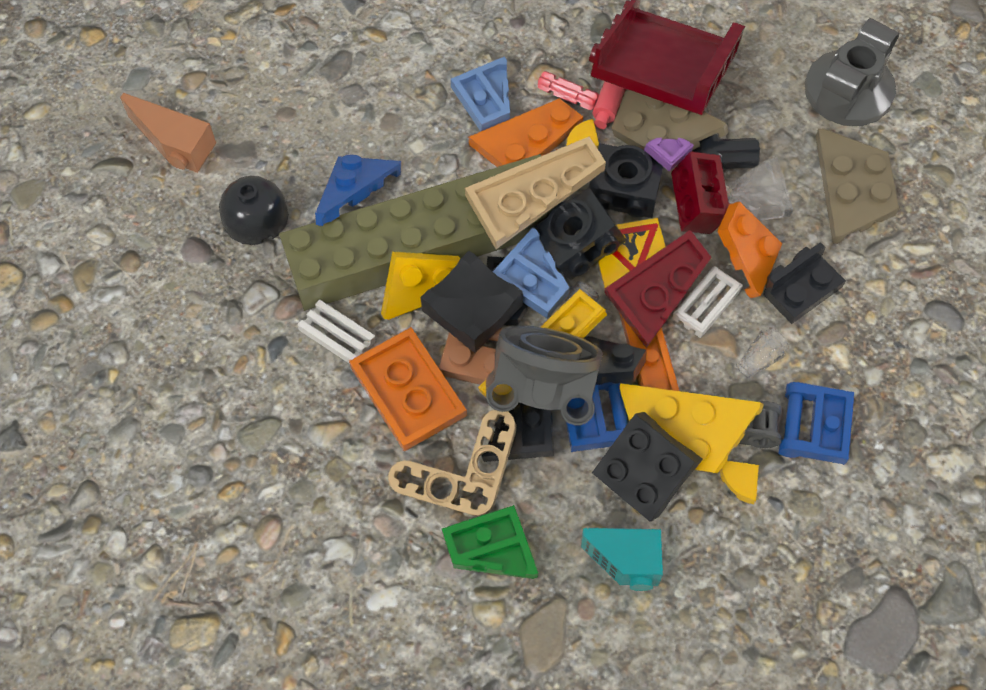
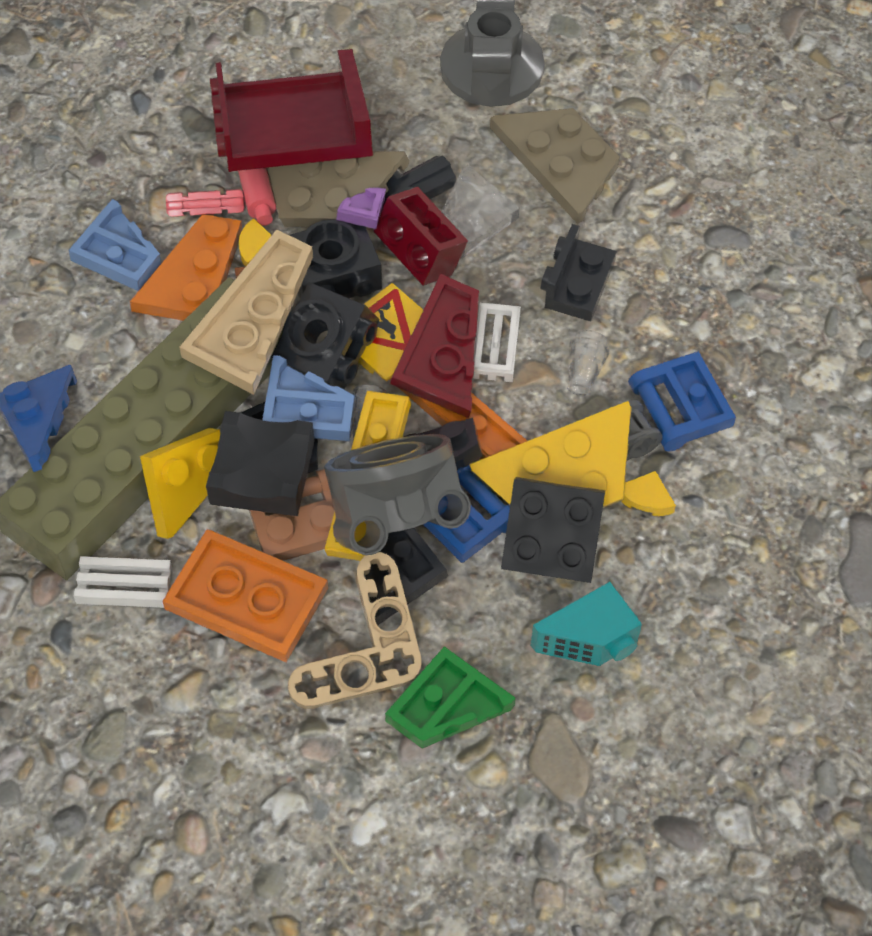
camera: 35 degrees left, 5 degrees down
(749, 245) = (505, 262): orange wing -> none

